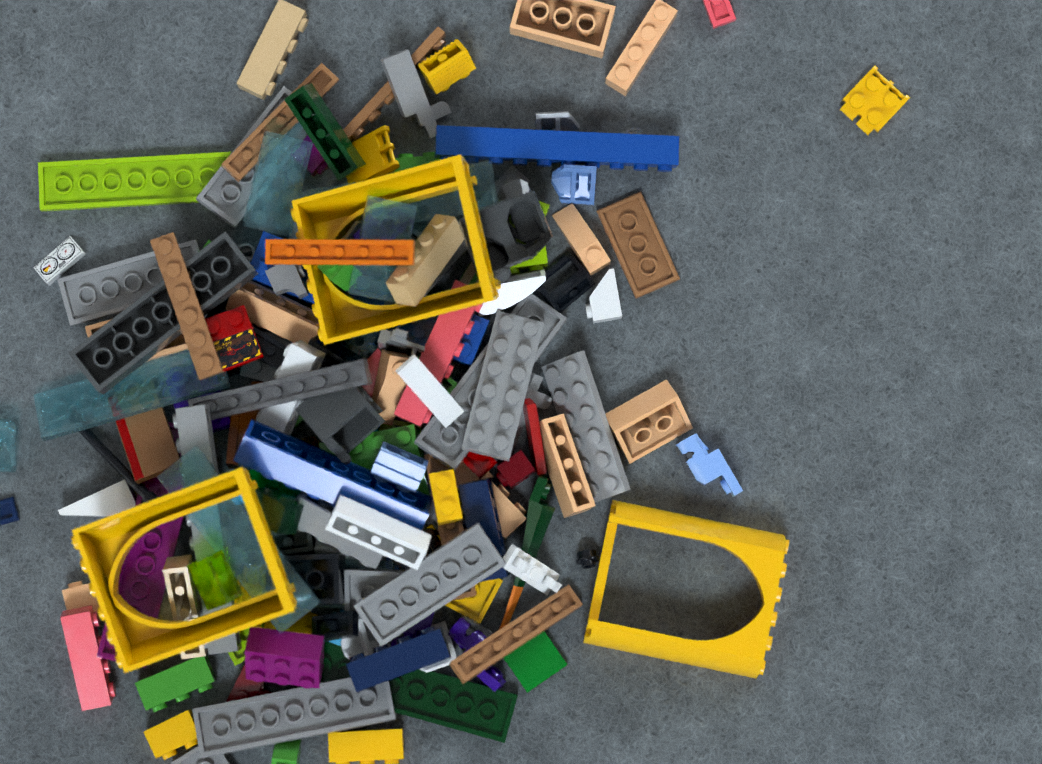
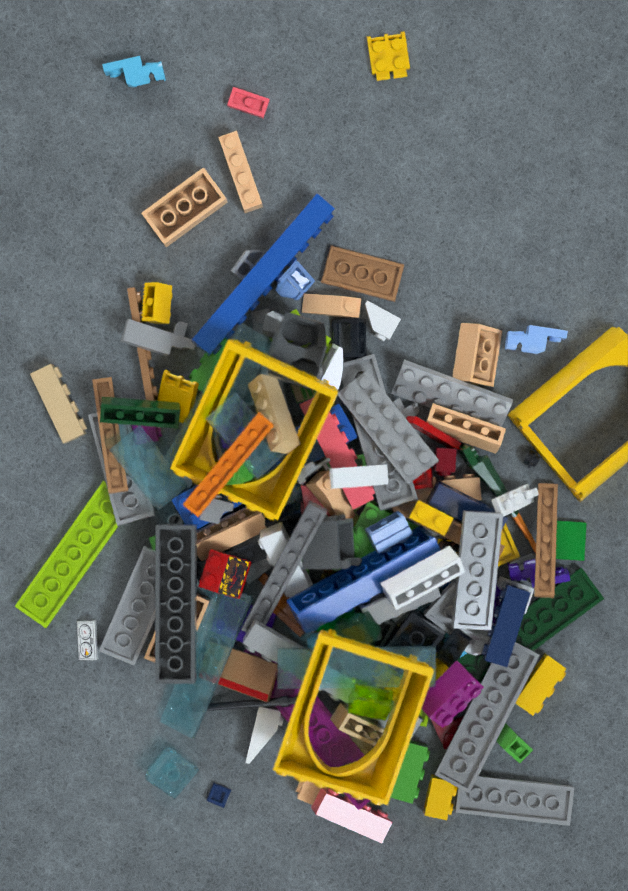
camera: 55 degrees left, 5 degrees up
(186, 306) = (184, 586): medium nougat plate -> none

